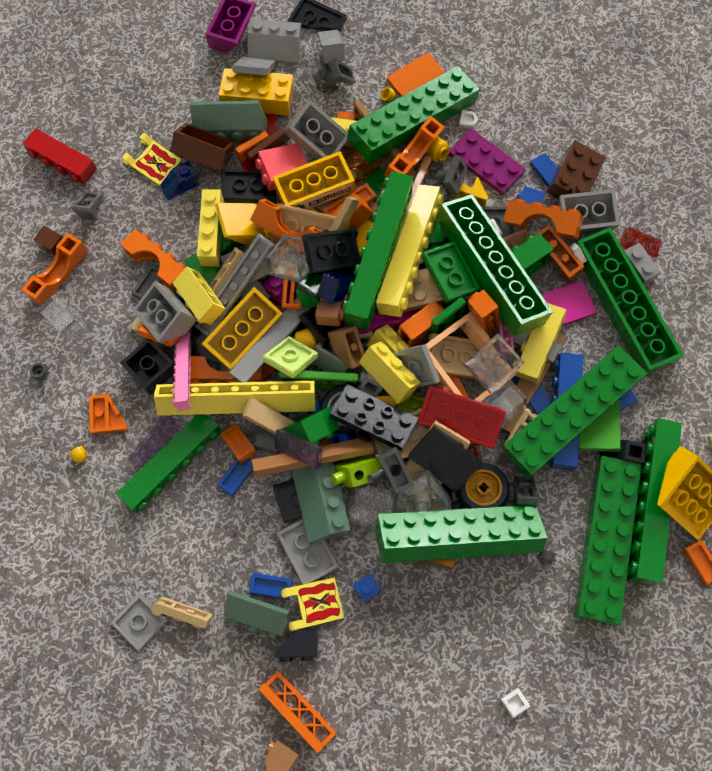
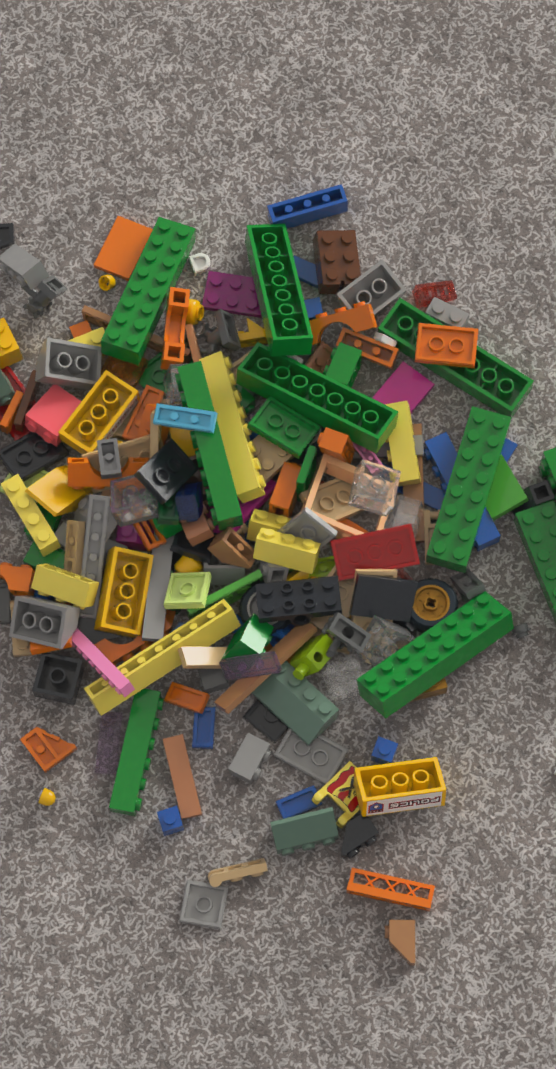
camera: 30 degrees left, 0 degrees up
(157, 535) = (170, 820): none -> blue brick
(192, 505) = (182, 777): none -> nougat tile
(254, 524) = (250, 758): none -> light grey brick
(295, 216) = (109, 458): none -> flat silver slope
(359, 628) = (399, 786): none -> yellow brick
(371, 214) = (185, 418): none -> medium azure tile
(514, 167) = (278, 290): none -> green brick
(578, 122) = (309, 207): none -> blue brick
(626, 285) = (446, 345): none -> orange tile

